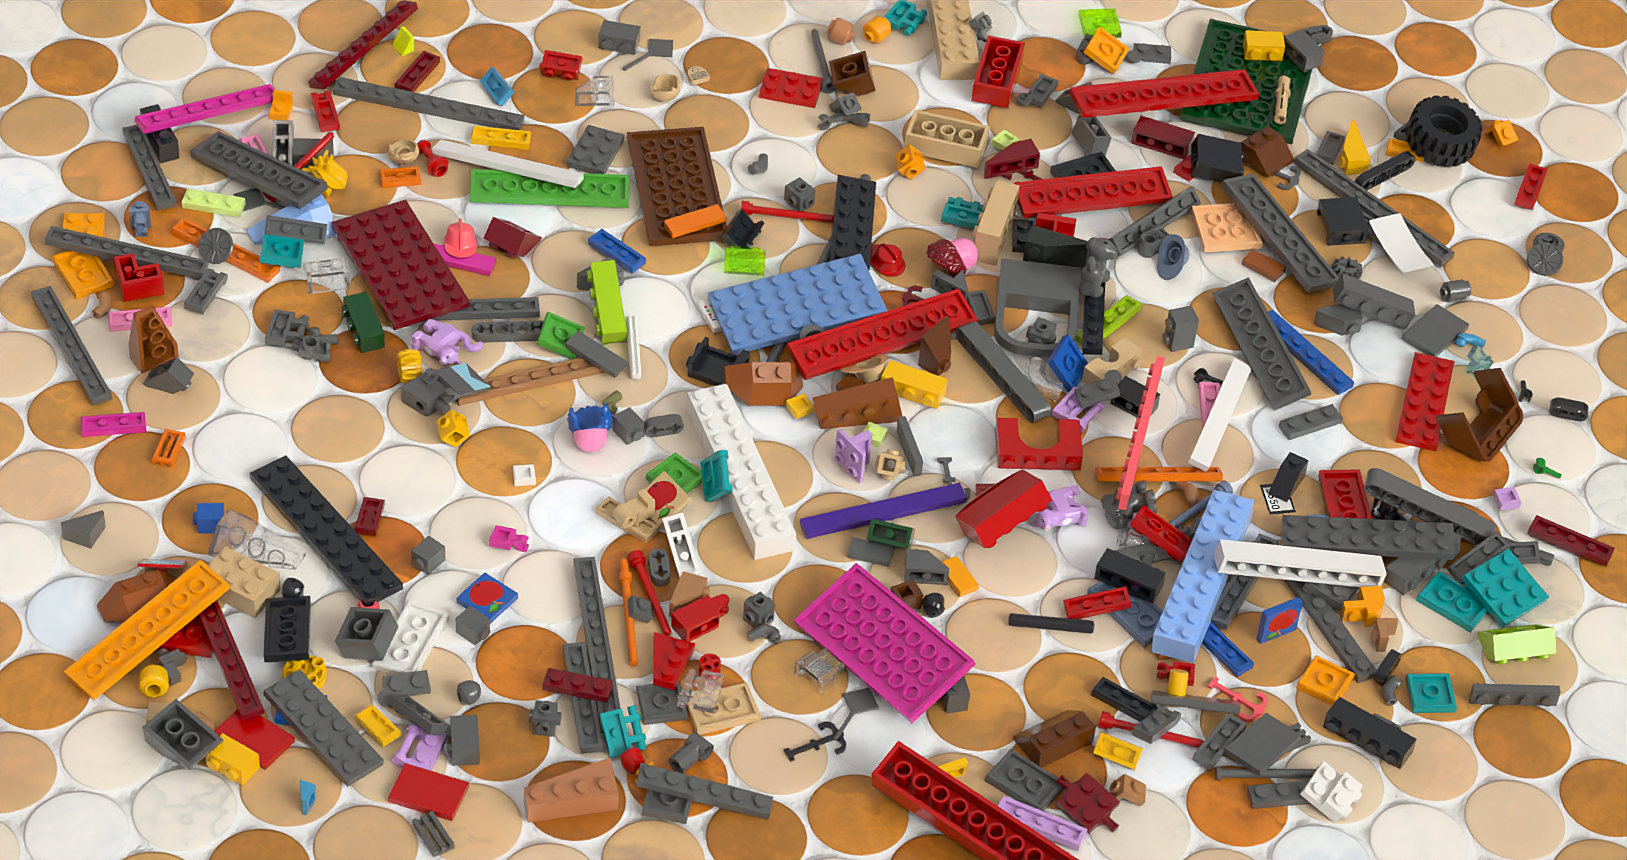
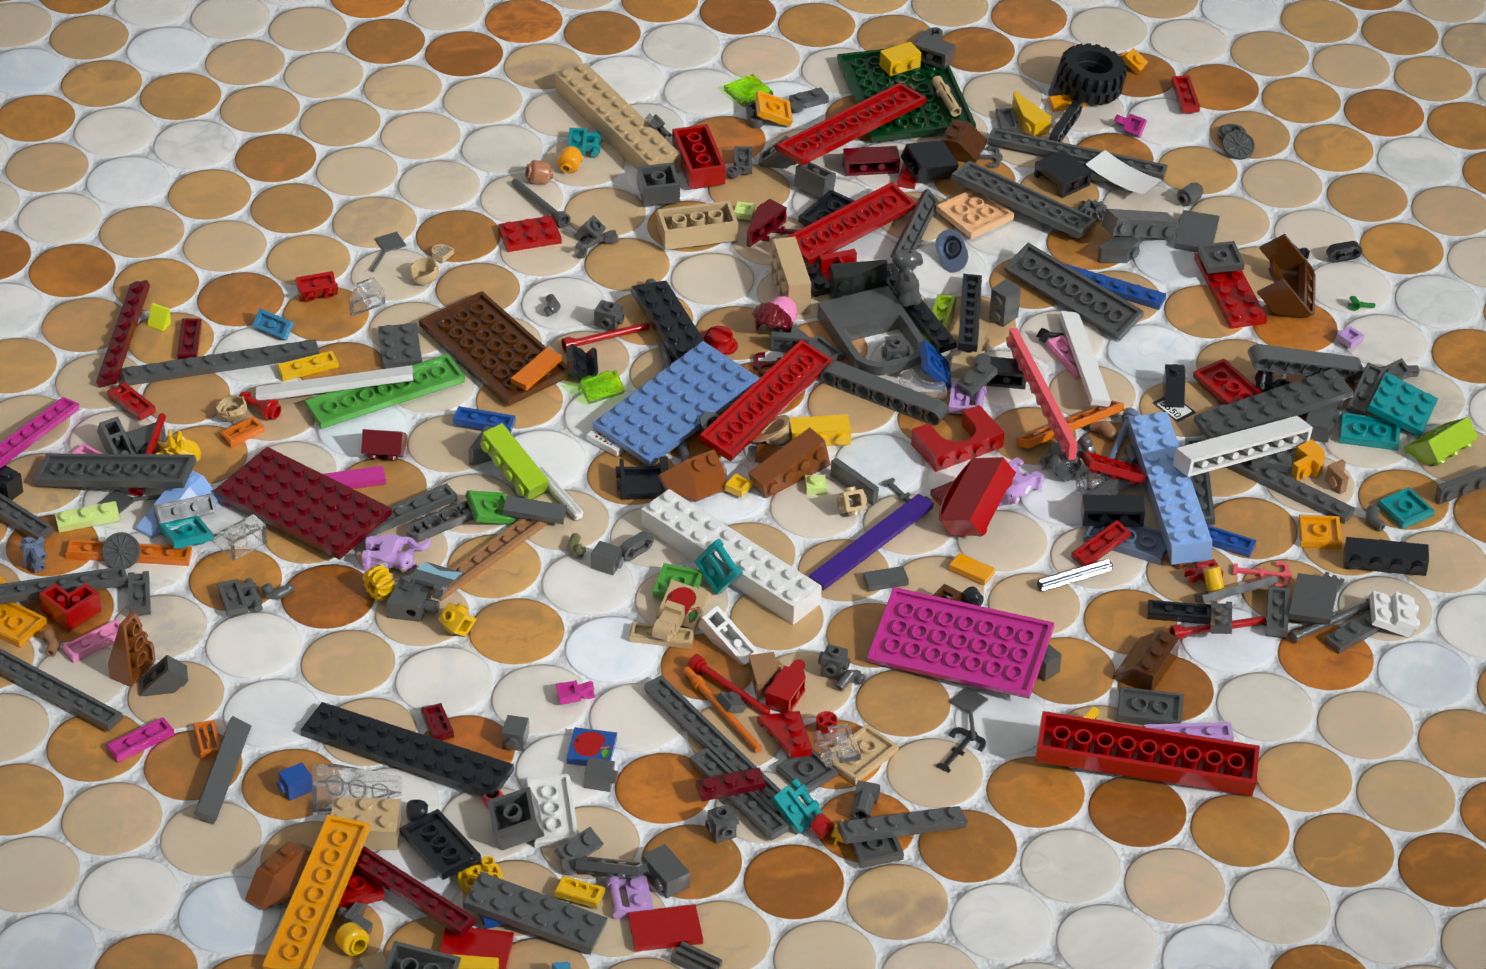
camera: 25 degrees left, 5 degrees down
(84, 529) = (184, 839): dark grey slope -> none
(159, 481) = (222, 770): none -> dark grey tile
(162, 565) = (283, 837): piece -> none
(281, 105) = (87, 411): light orange bracket -> none
(311, 348) = (279, 602): dark grey plate -> none
(363, 322) = (306, 563): dark green brick -> none
(460, 240) = (339, 462): coral piece -> none
(468, 692) = (638, 830): dark grey piece -> none
(524, 475) = (544, 634): white tile -> none
(573, 793) = (794, 873): nougat wedge -> none
(590, 427) = (577, 570): hair -> none
(619, 37) = (351, 245): dark grey brick -> none
(655, 567) = (723, 661): dark grey beam -> none
(819, 669) = (918, 689): clear piece -> none
(853, 74) = (579, 200): reddish brown slope -> none
(853, 453) = (816, 504): lavender bracket -> none
(891, 534) = (896, 555): dark green brick -> none
(910, 162) = (680, 255): light orange brick -> none
(924, 568) = (940, 571): dark grey slope -> none
(936, 348) = (821, 394): reddish brown slope -> none
(939, 84) = (658, 184): none -> dark grey brick
(962, 212) = (754, 280): teal plate -> none
(1087, 803) = (1213, 701): dark red plate -> none
(1118, 750) = (1206, 651): yellow plate -> none
(1129, 789) = (1236, 677): medium nougat bracket -> none
(1137, 325) = (970, 313): none -> black plate
(1151, 241) = (926, 244): dark grey piece -> none
(1263, 265) = (1025, 231): dark orange tile -> none
(1279, 620) = (1255, 497): blue tile -> none
(1310, 422) = (1155, 338): dark grey plate -> none
(1387, 666) = (1360, 500): black beam -> none
(1432, 366) = (1221, 257): none -> dark grey plate
(1452, 197) = (1132, 124): none -> dark pink plate
(1471, 339) = (1223, 229): dark azure arm -> none
(1478, 359) = (1251, 241): clear light blue piece -> none
(1571, 540) = (1421, 350): dark red plate -> none

